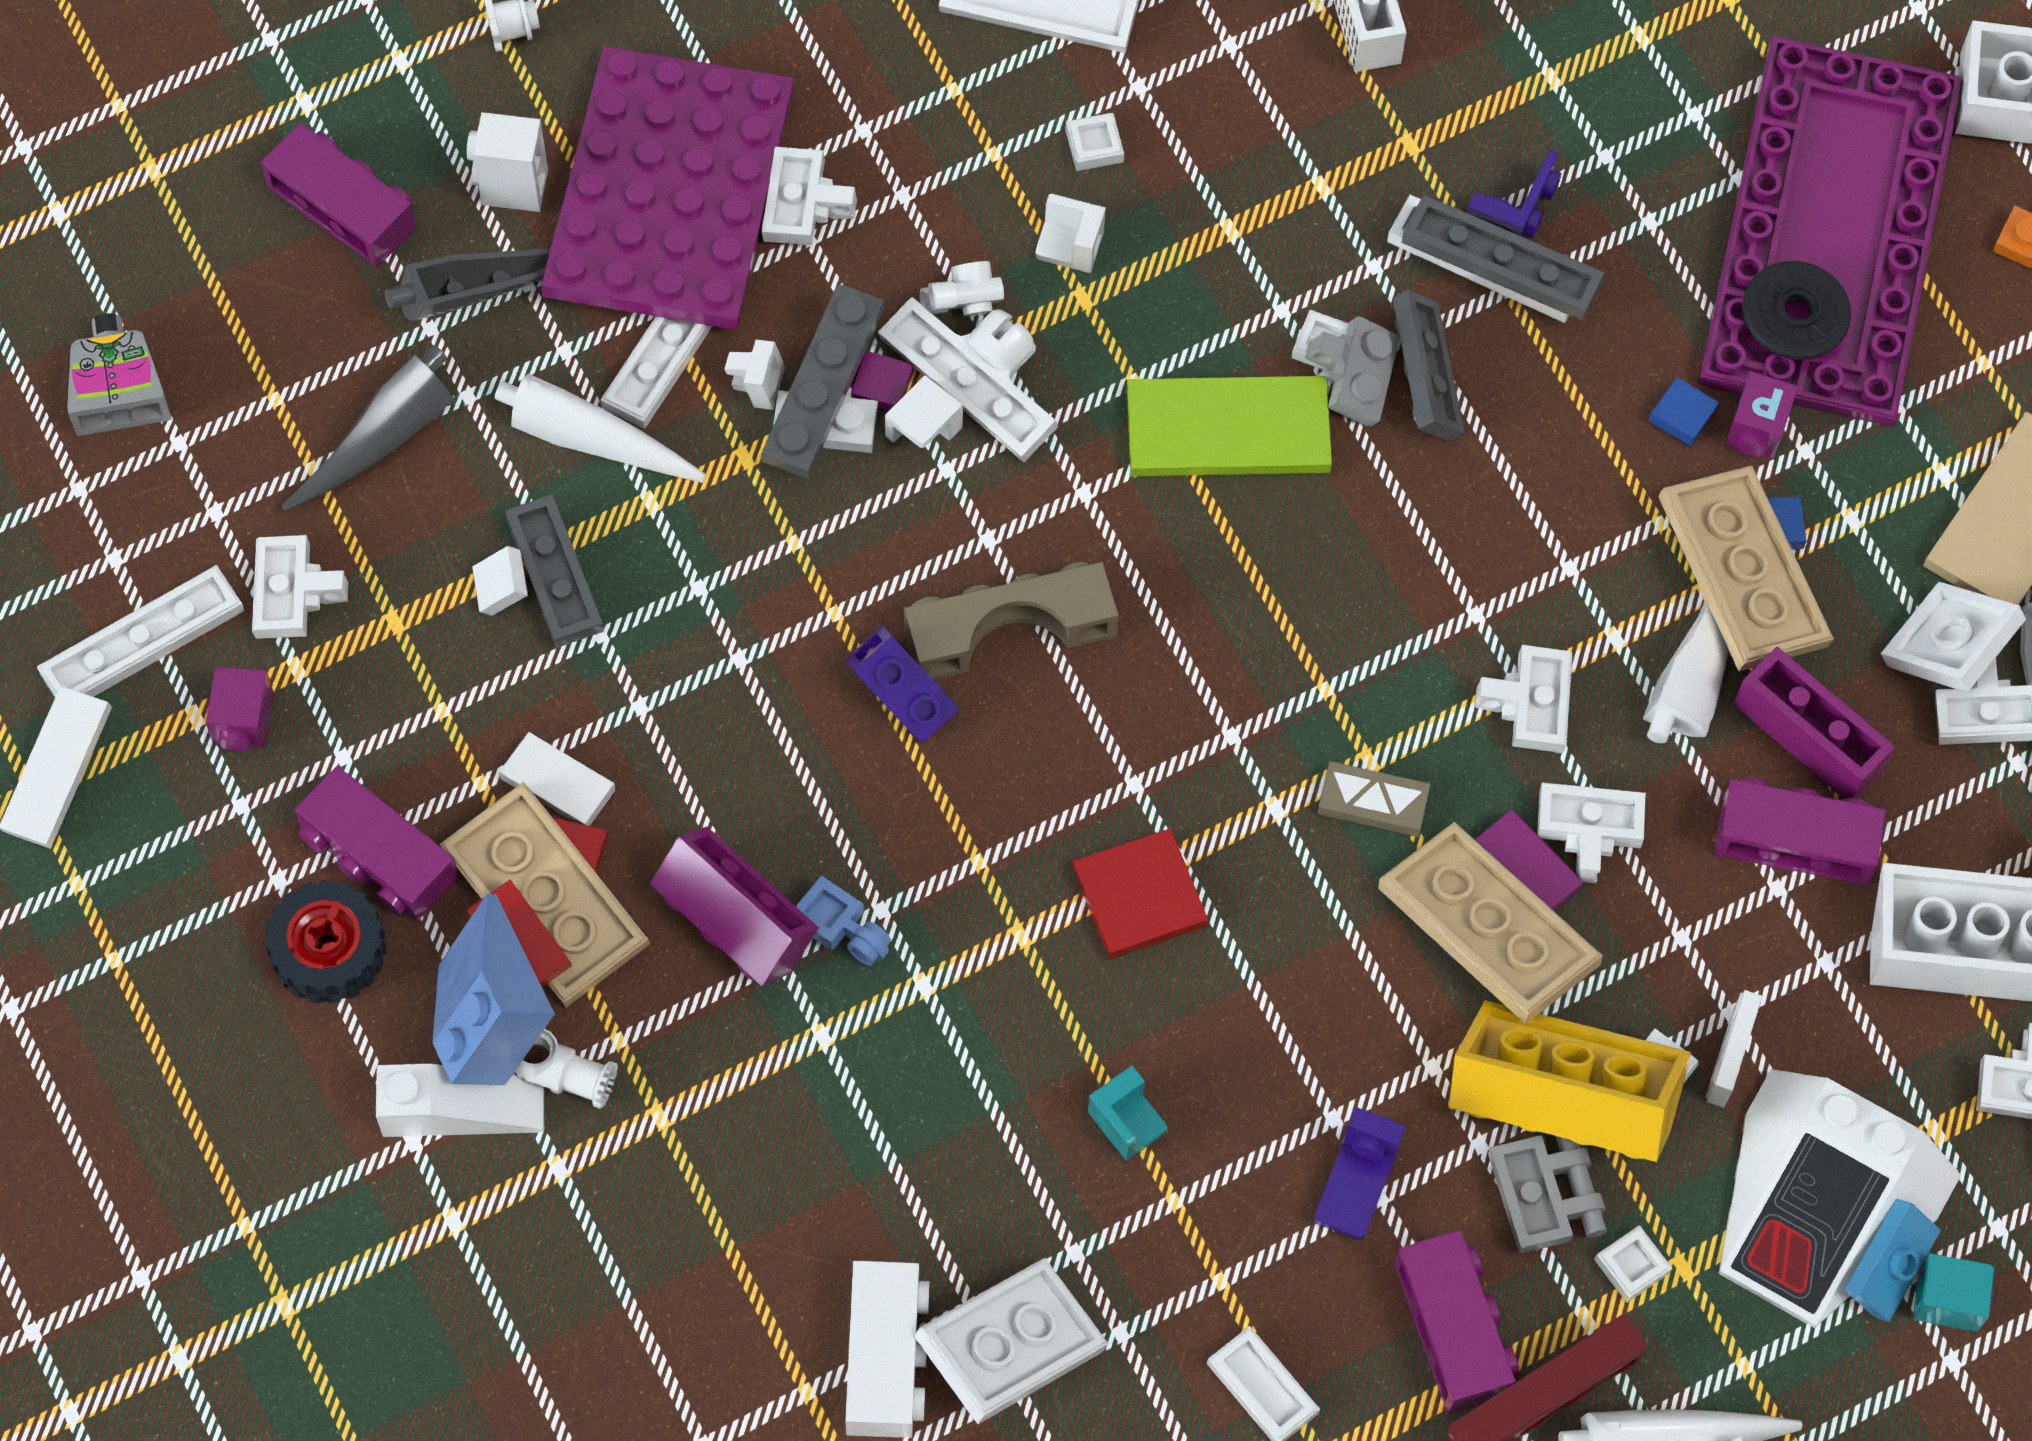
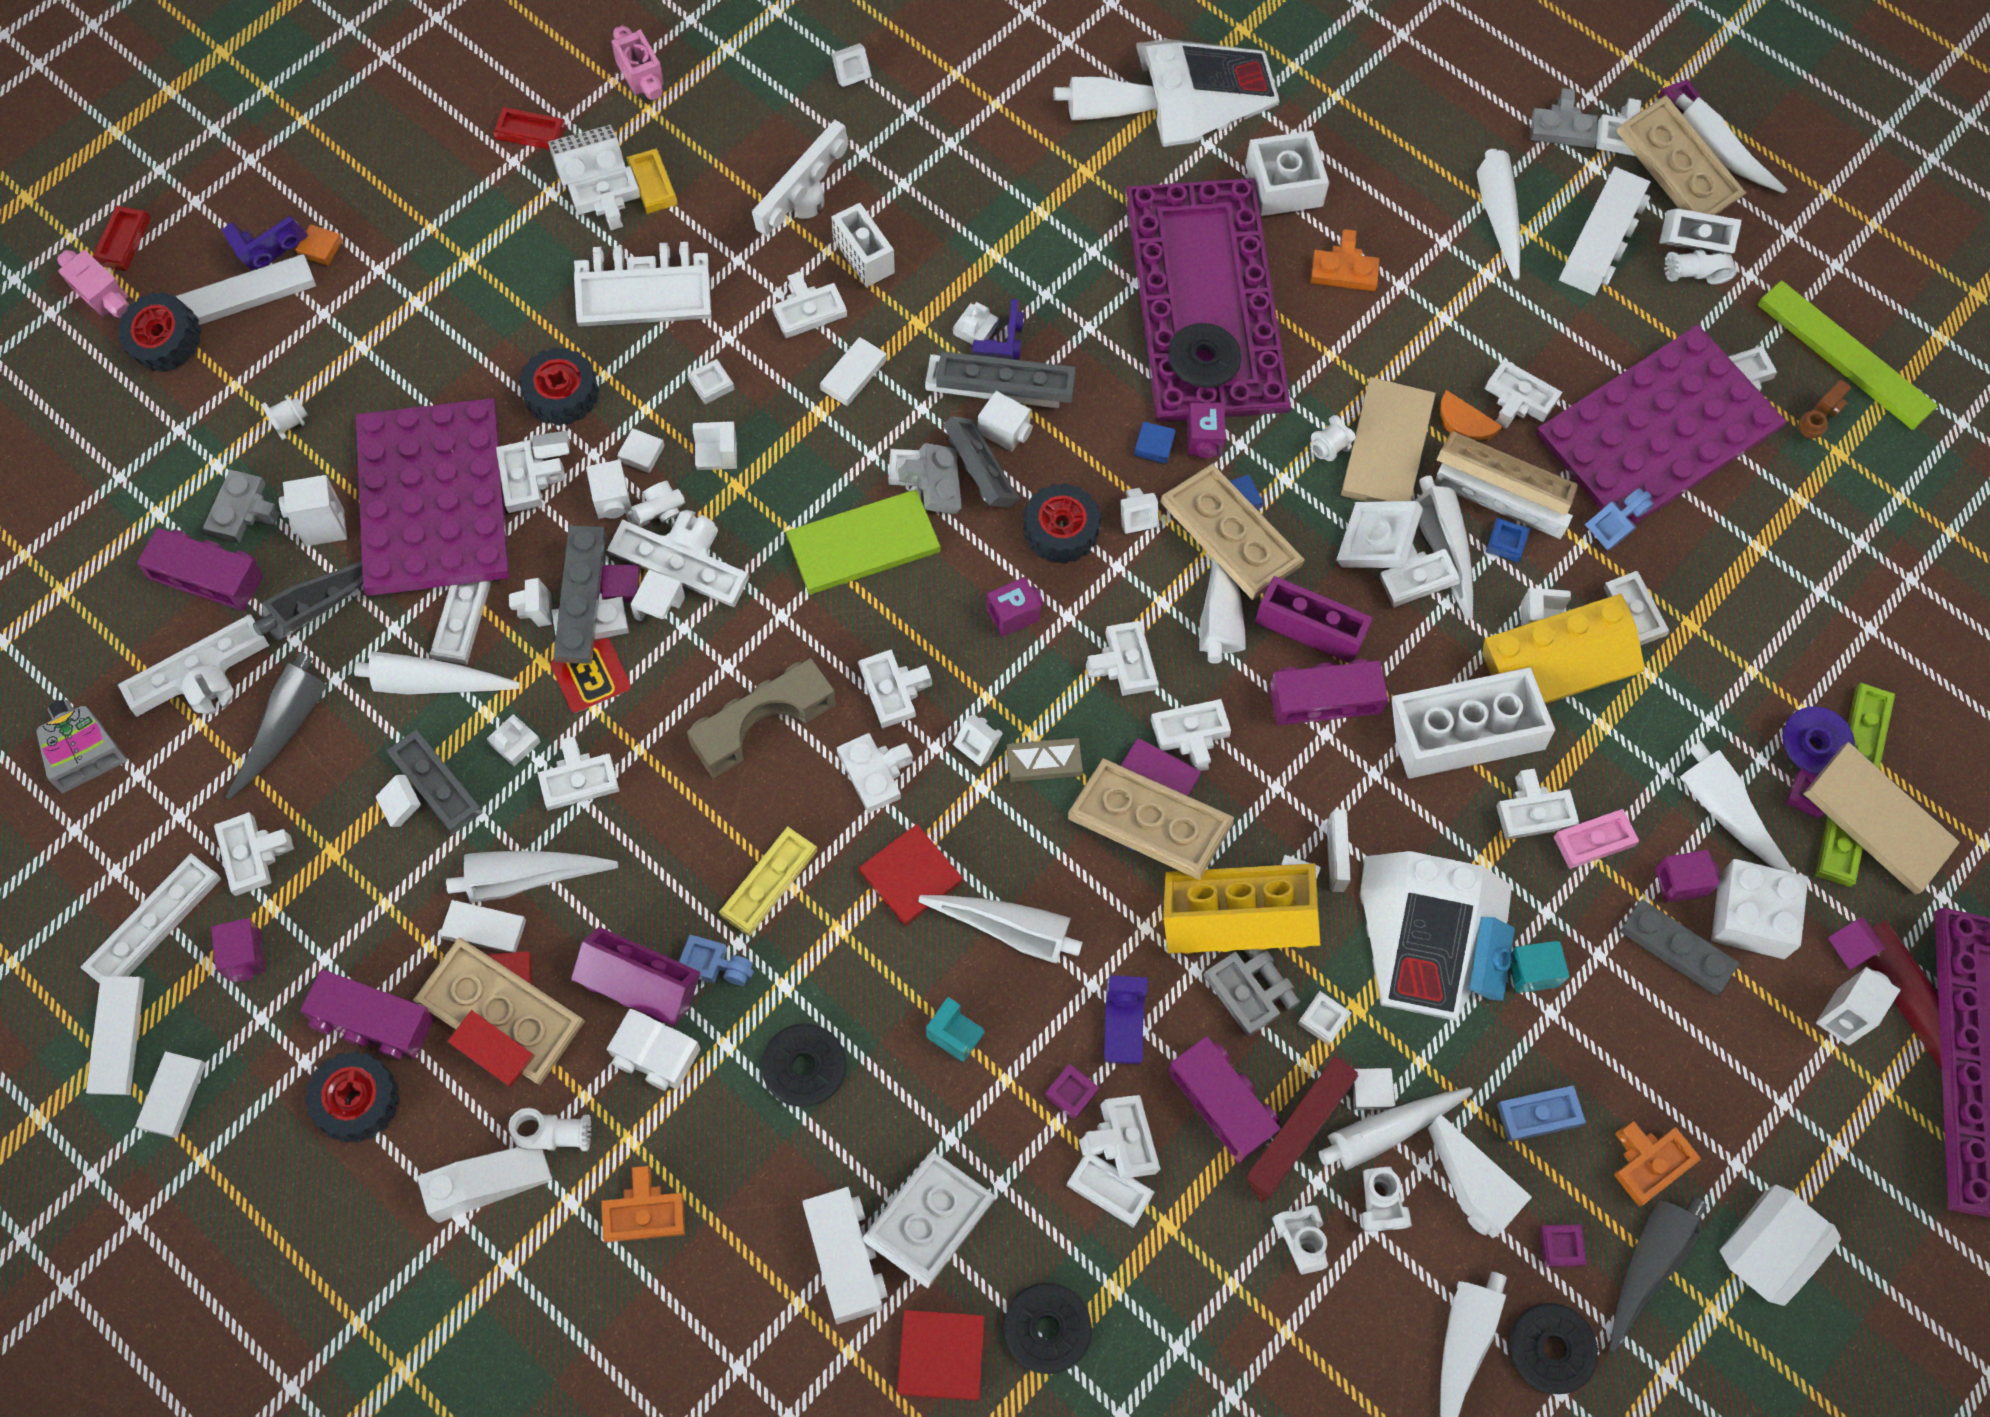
camera: 20 degrees left, 0 degrees up
(101, 864) = (170, 1095): none -> white tile
(293, 328) = (195, 671): none -> white plate
(412, 126) = (238, 506): none -> light grey hinge
(487, 1001) = (482, 1104): medium blue slope -> none
(614, 721) = (512, 872): none -> white piece
(646, 1209) = (643, 1212): none -> orange hinge
(674, 549) = (513, 740): none -> white tile
(725, 1008) = (653, 1049): none -> white brick
(741, 624) = (577, 777): none -> white hinge
(802, 505) = (592, 683): none -> sticker
(849, 165) = (551, 444): none -> white tile
(887, 111) = (567, 400): none -> black wheel
(901, 684) = (701, 783): dark purple bracket -> none
(907, 250) = (609, 489): none -> white brick
(919, 1125) = (810, 1088): none -> black wheel
(947, 841) = (768, 881): none -> light yellow tile
(968, 209) = (641, 450): none -> white tile
(1138, 739) = (874, 770): none -> white hinge
(1201, 635) = (892, 687): none -> white hinge
(1256, 1245) = (1072, 1091): none -> magenta tile
(1262, 1008) = (1020, 926): none -> white piece
(1263, 77) = (808, 307): none -> white hinge
(1291, 742) = (977, 739): none -> white tile
(1295, 186) = (853, 371): none -> white tile
(1302, 1325) = (1124, 1137): none -> white hinge
(1405, 578) = (1014, 606): none -> magenta brick
(1481, 319) = (1005, 421): none -> white brick
(1490, 169) = (975, 323): none -> white tile
(1498, 461) = (1048, 510): none -> black wheel
(1624, 500) = (1138, 511): none -> white tile
(1664, 1377) = (1373, 1089): none -> white tile
(1936, 484) = (1332, 439): none -> white brick

